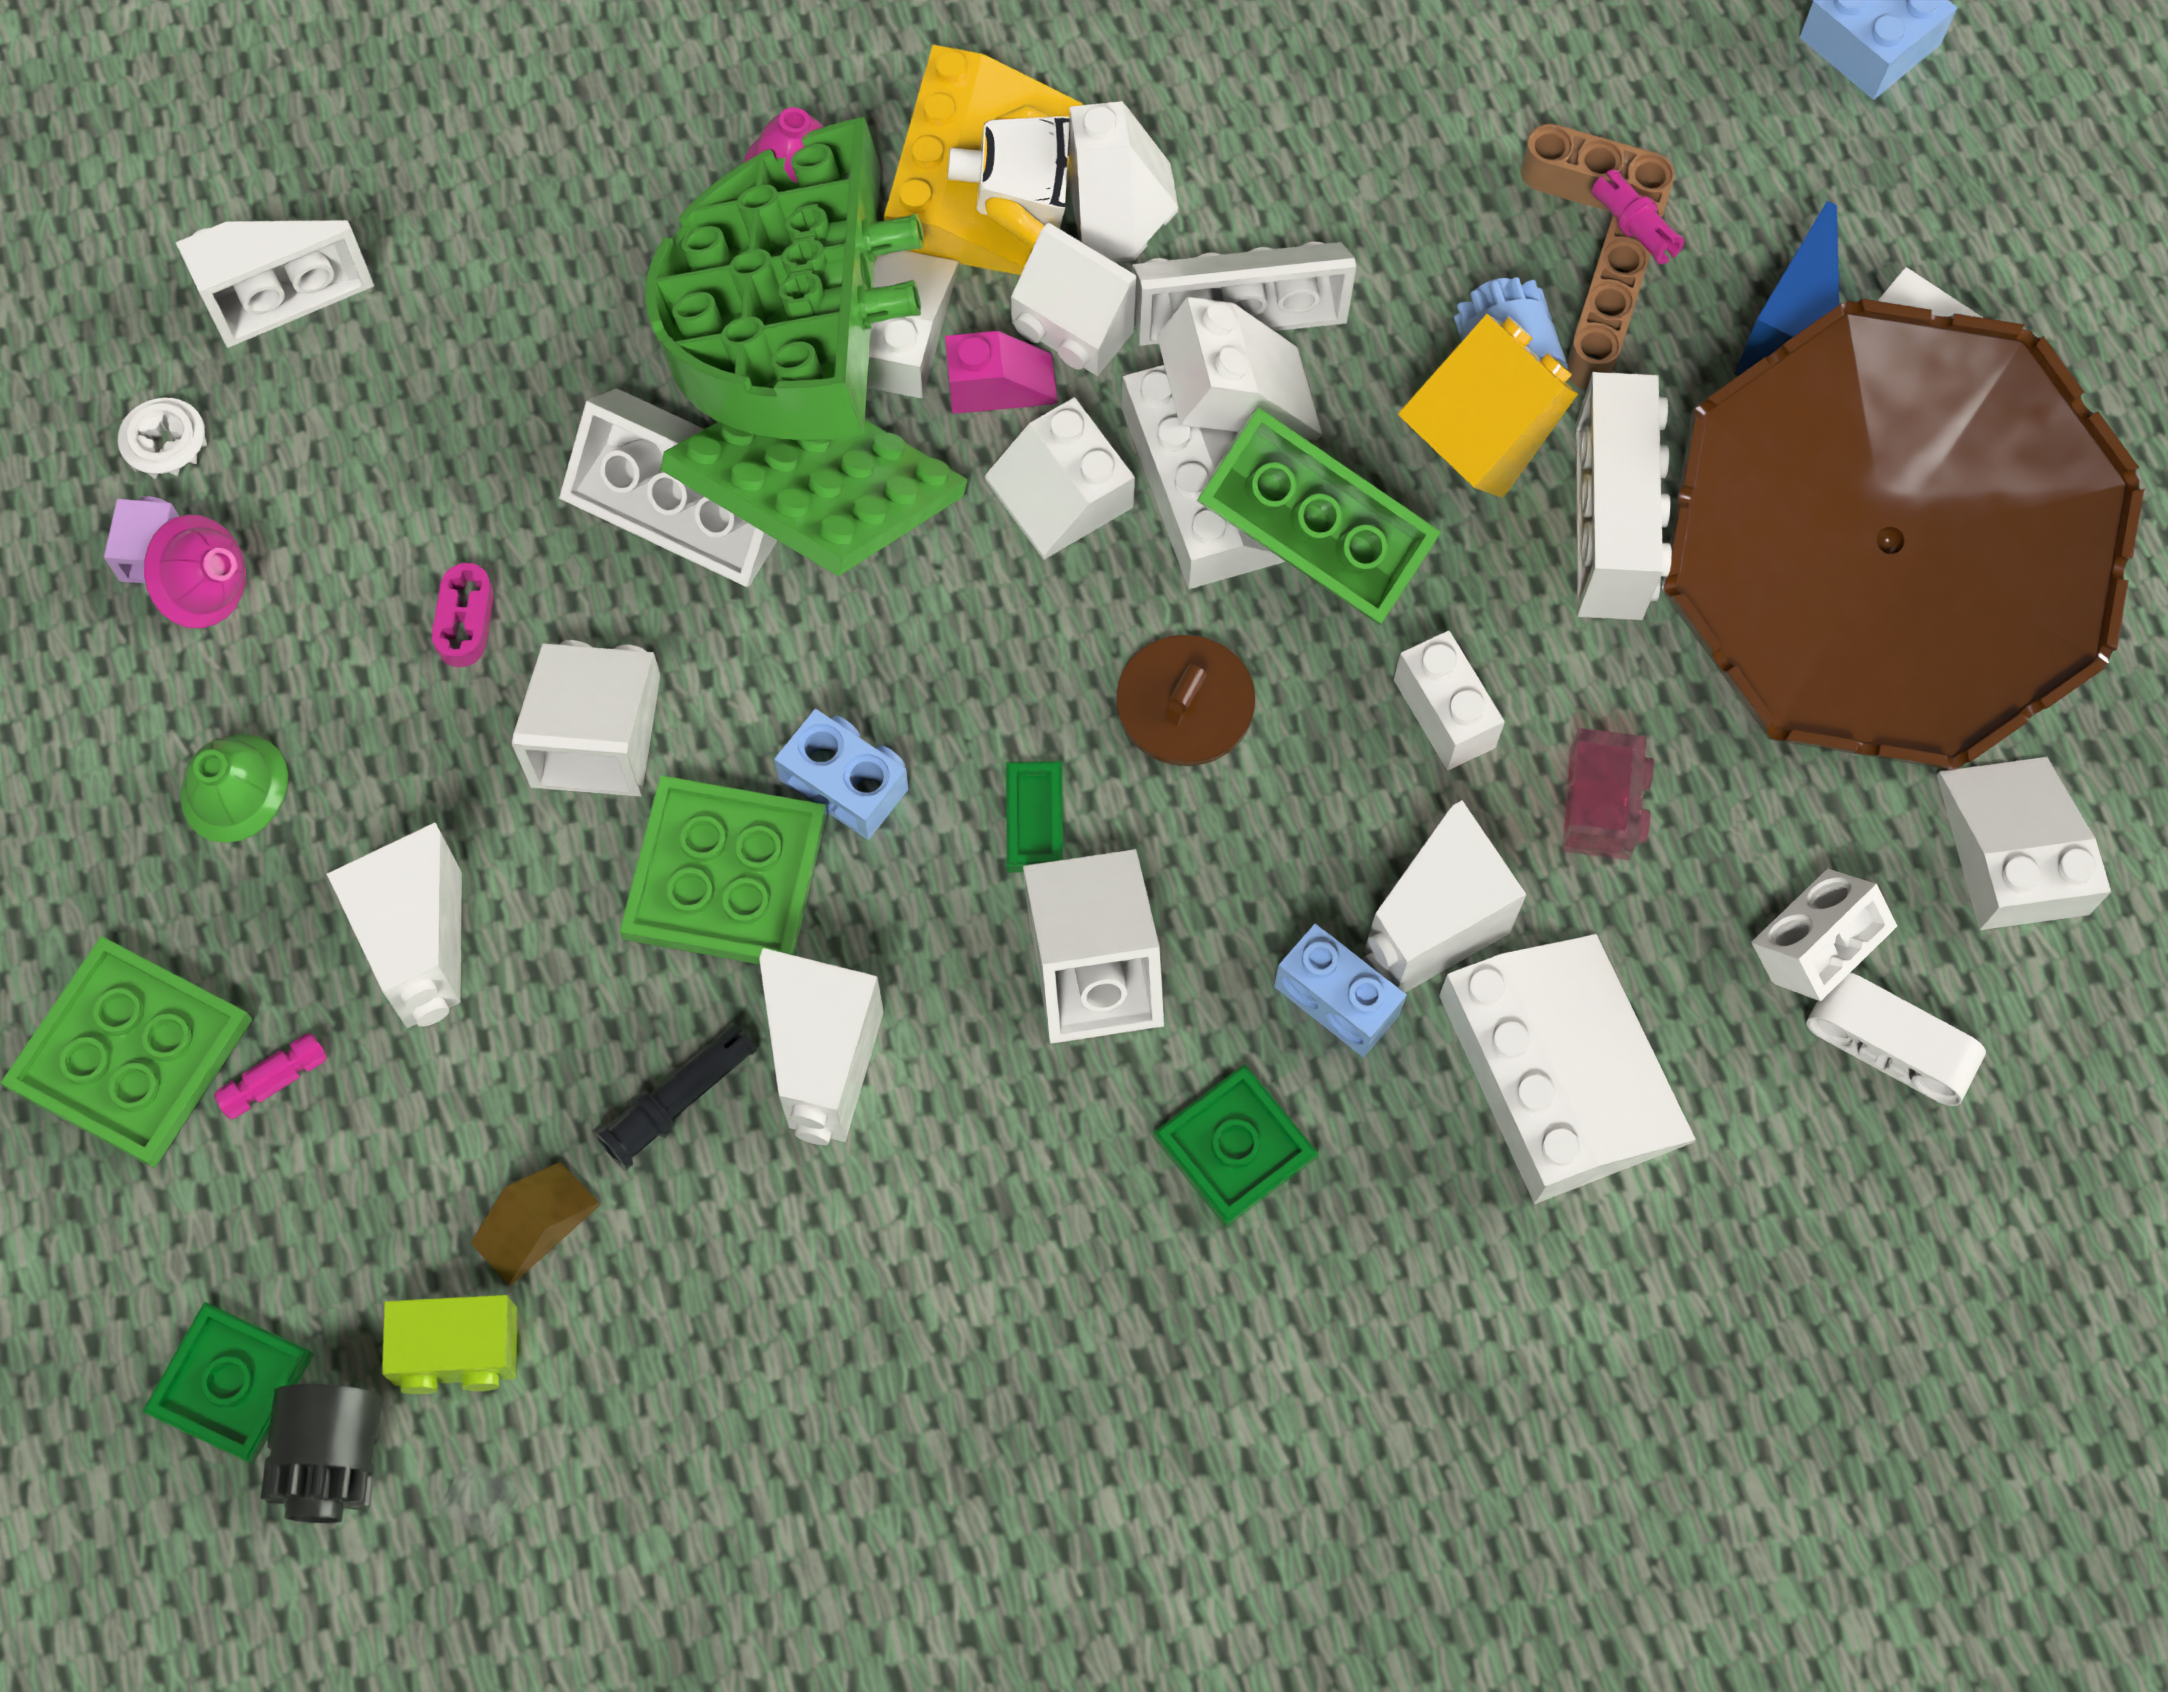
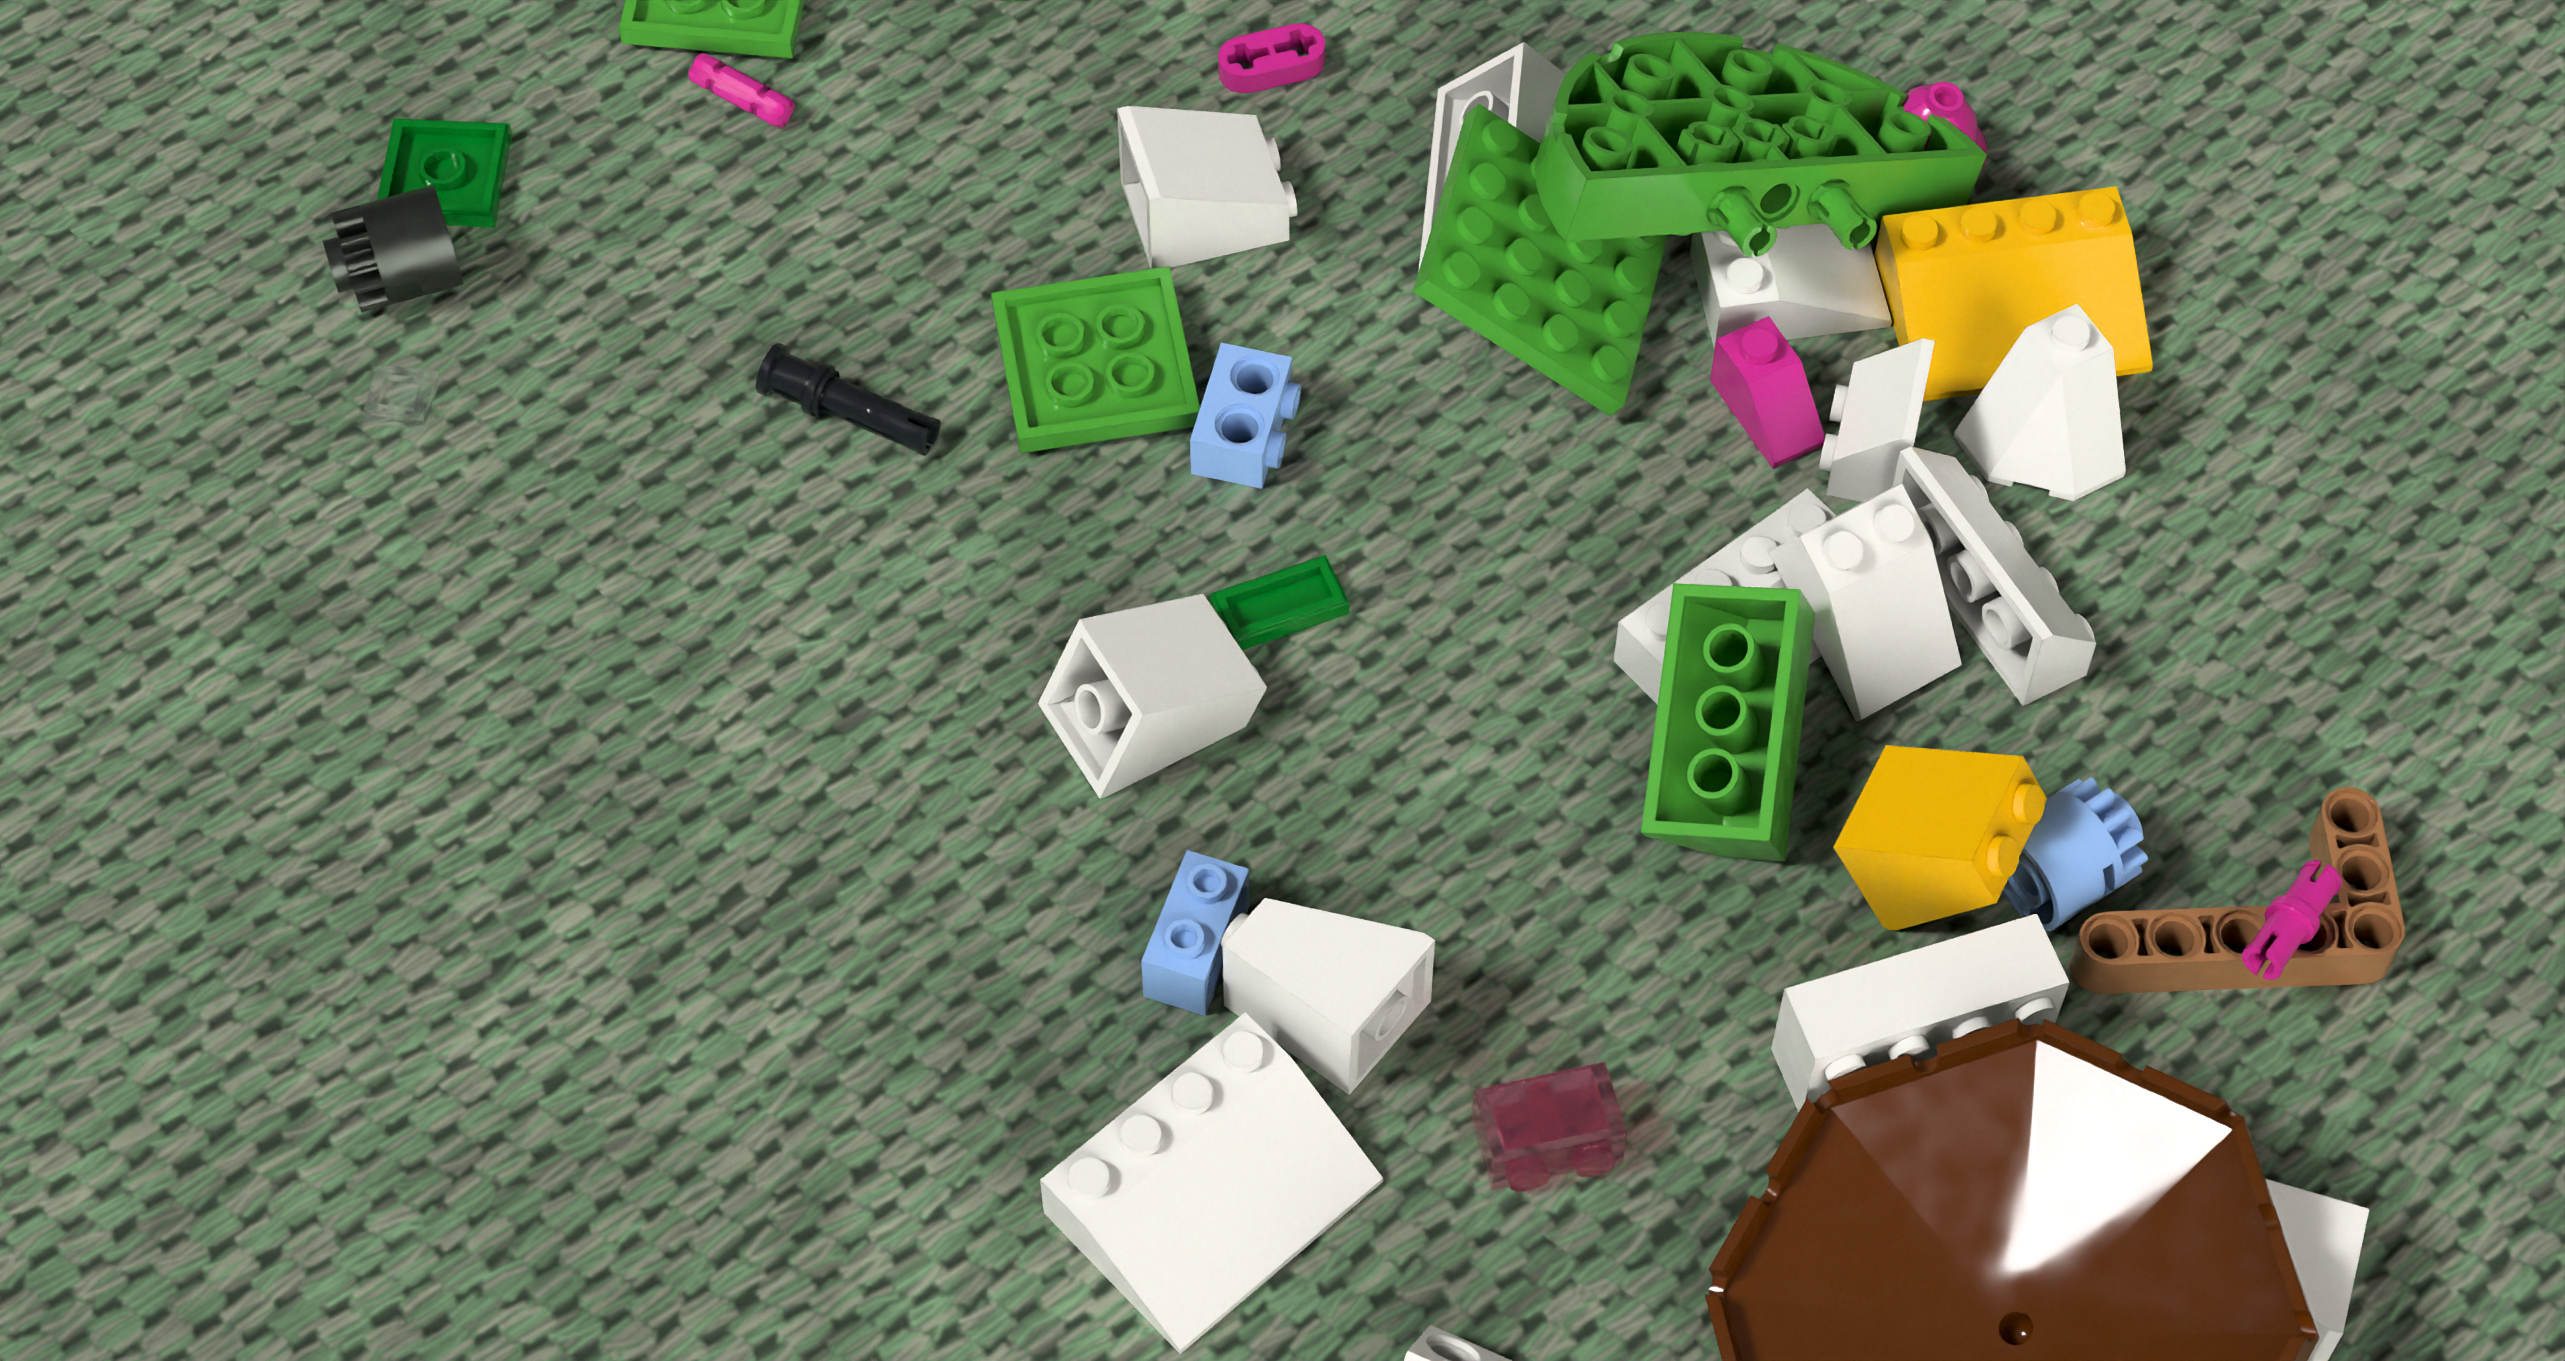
camera: 70 degrees right, 10 degrees down
(408, 922) = (919, 120): white slope -> none
(449, 1343) = (535, 312): lime brick -> none
(532, 1220) = (683, 336): pearl gold slope -> none
(821, 1040) = (929, 483): white slope -> none
(1018, 171) = (1985, 310): white torso -> none
(1061, 479) = (1675, 494): white slope -> none
(1185, 700) = (1474, 693): reddish brown shield -> none
(1235, 1145) = (992, 903): green tile -> none
(1448, 700) = (1586, 933): white brick -> none
(1803, 293) = (2310, 1128): blue slope -> none

